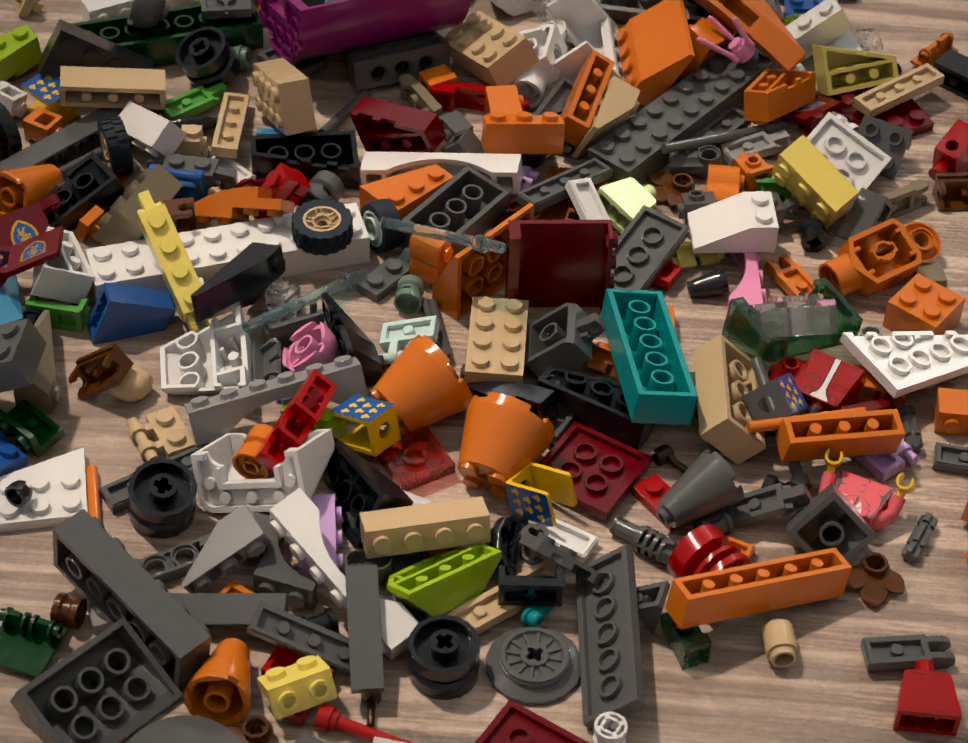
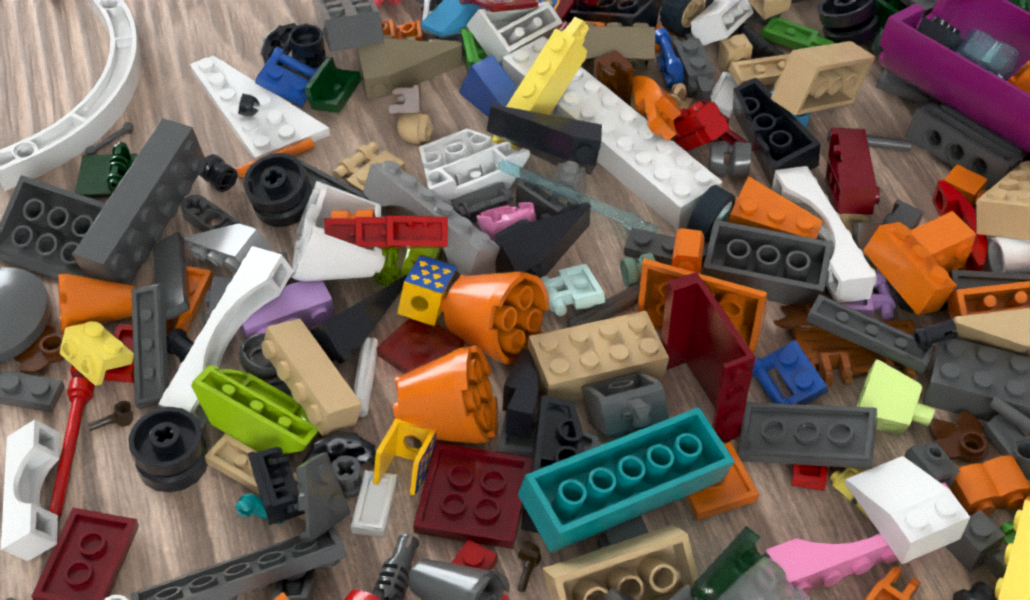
camera: 70 degrees right, 5 degrees up
(322, 227) = (656, 164): black wheel -> none
(364, 629) = (163, 371): dark grey tile -> none
(417, 95) = (926, 184): dark tan hinge -> none
(478, 242) = (665, 266): clear light blue bar -> none
(526, 679) = (191, 549): dark grey piece -> none
(586, 199) = (853, 362): white tile -> none
(591, 153) = (934, 333): none -> black pin
(708, 285) = (819, 520): black cone -> none

